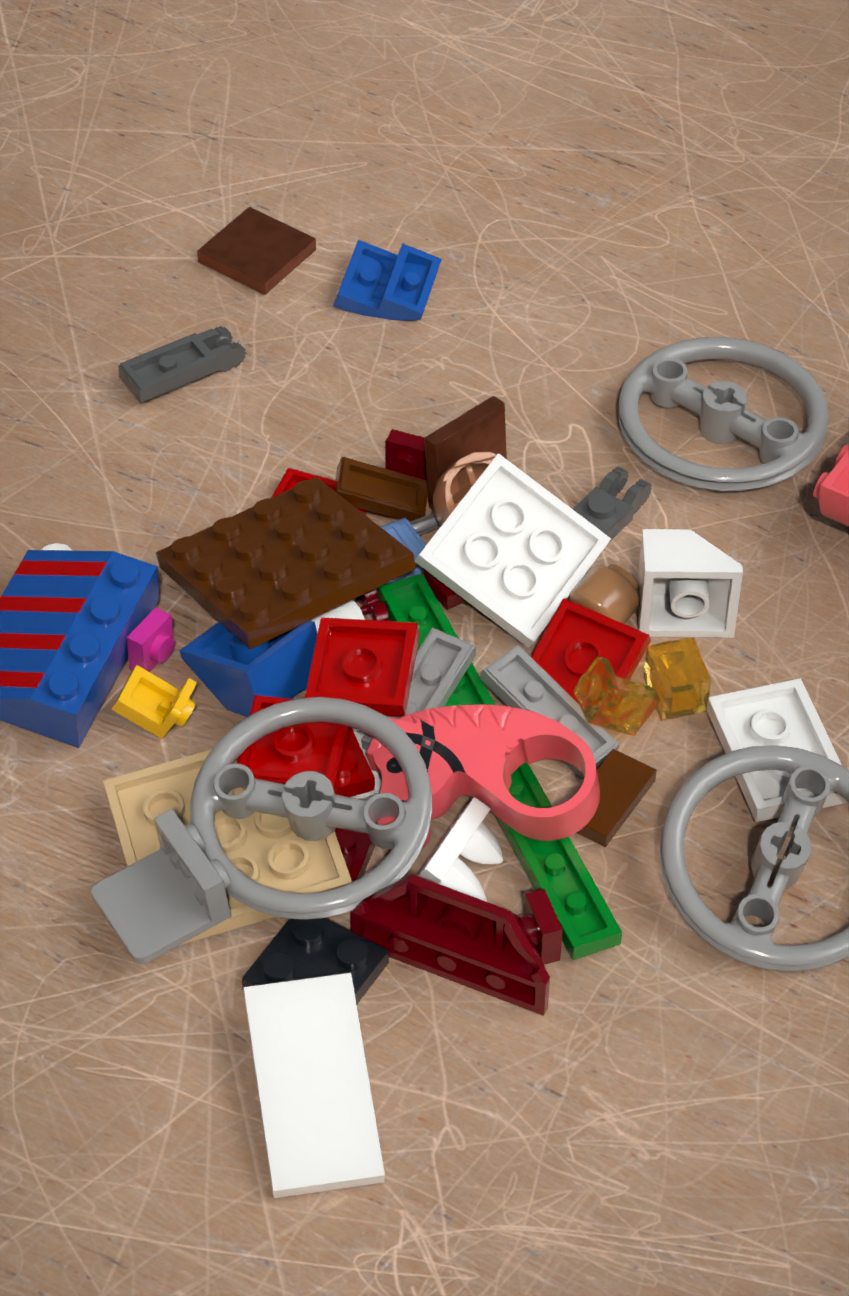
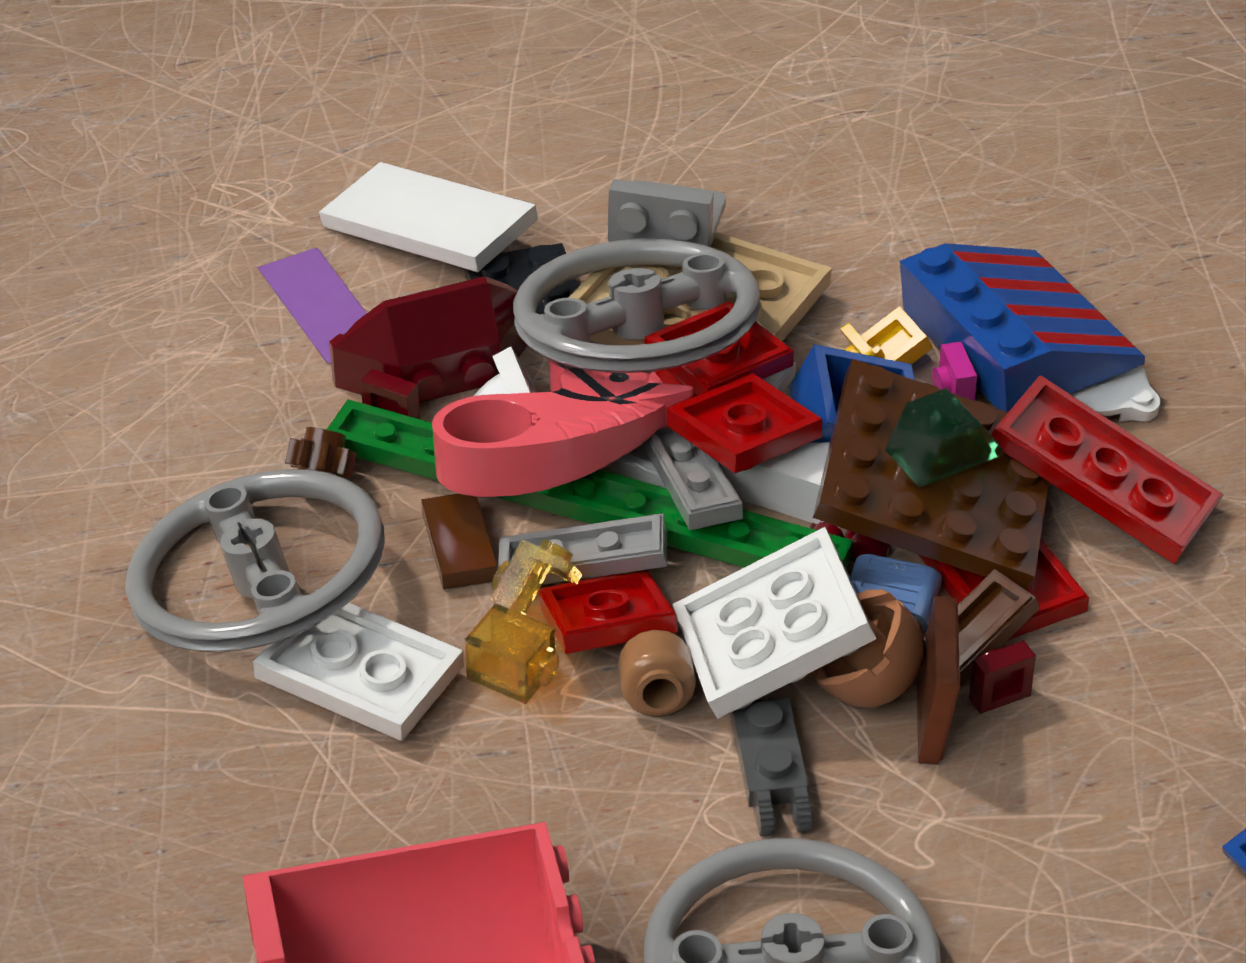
camera: 135 degrees right, 5 degrees down
(173, 503) = (1106, 468): none -> red tile
(283, 526) = (939, 439): none -> clear green slope
(473, 1098) = (314, 296): none -> medium lavender sticker
(647, 911) = (322, 452): none -> reddish brown gear
(686, 586) = (588, 703): white slope -> none

